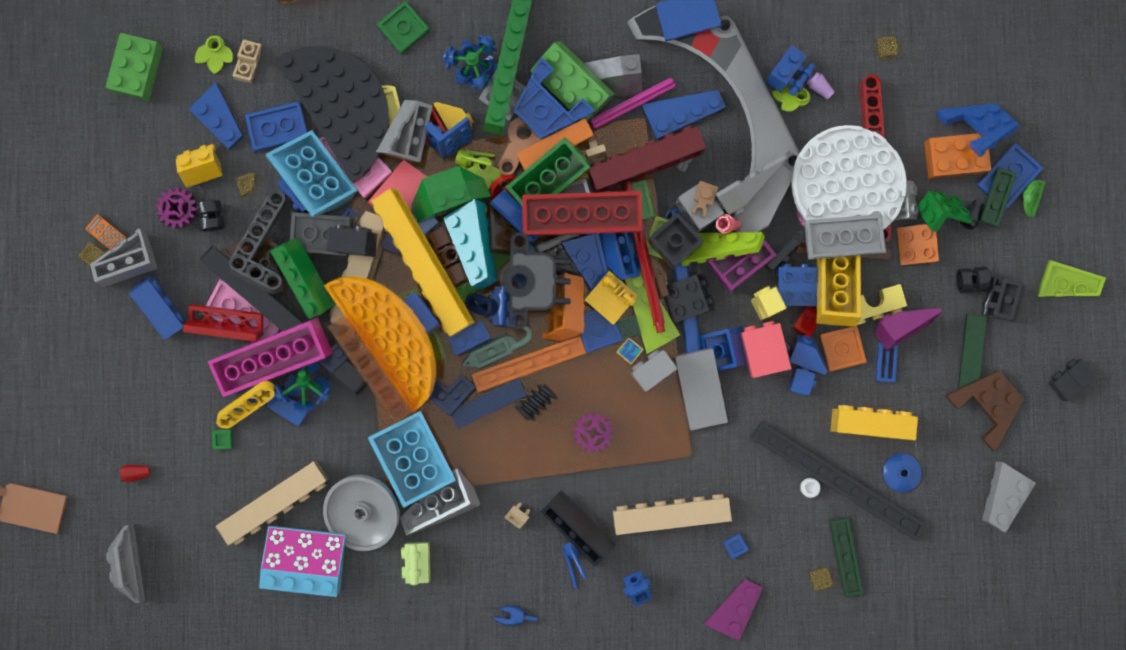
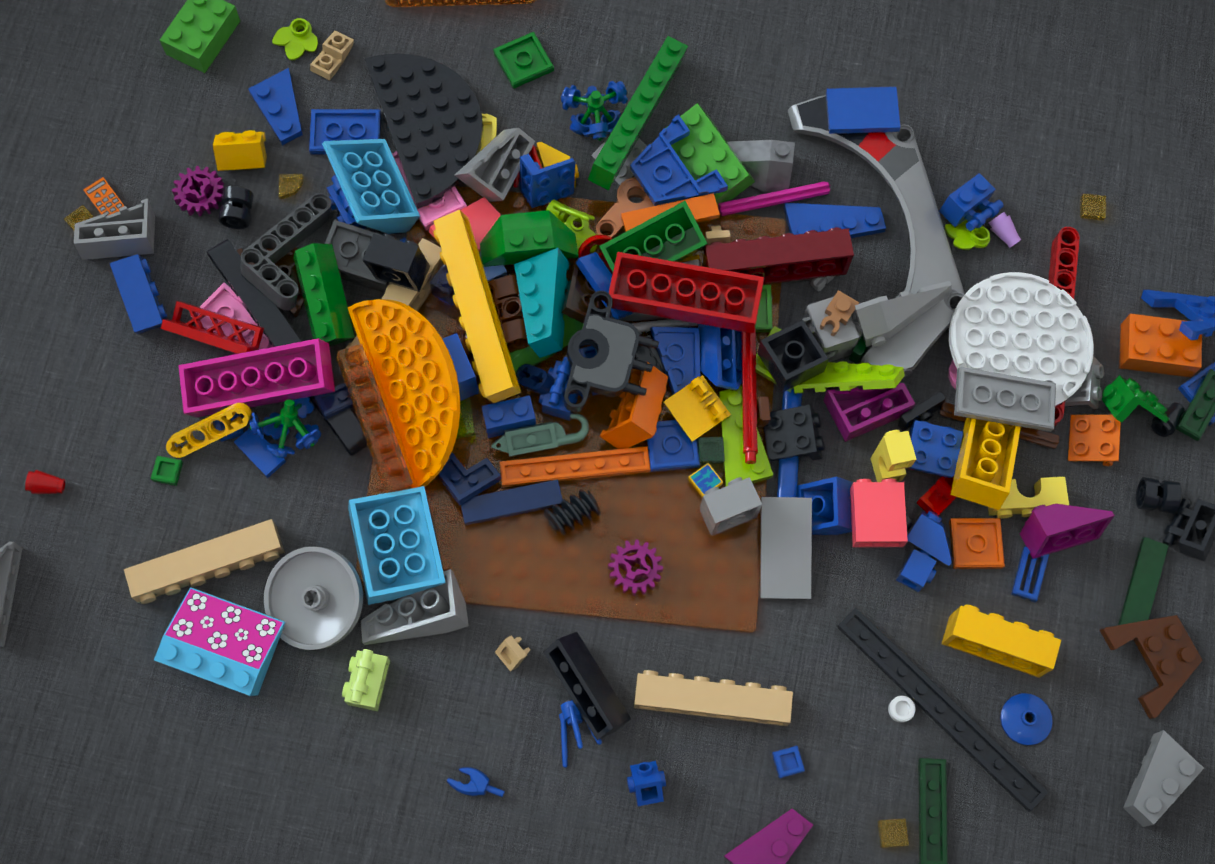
camera: 10 degrees right, 15 degrees down
(727, 224) = (861, 351): coral cone -> none

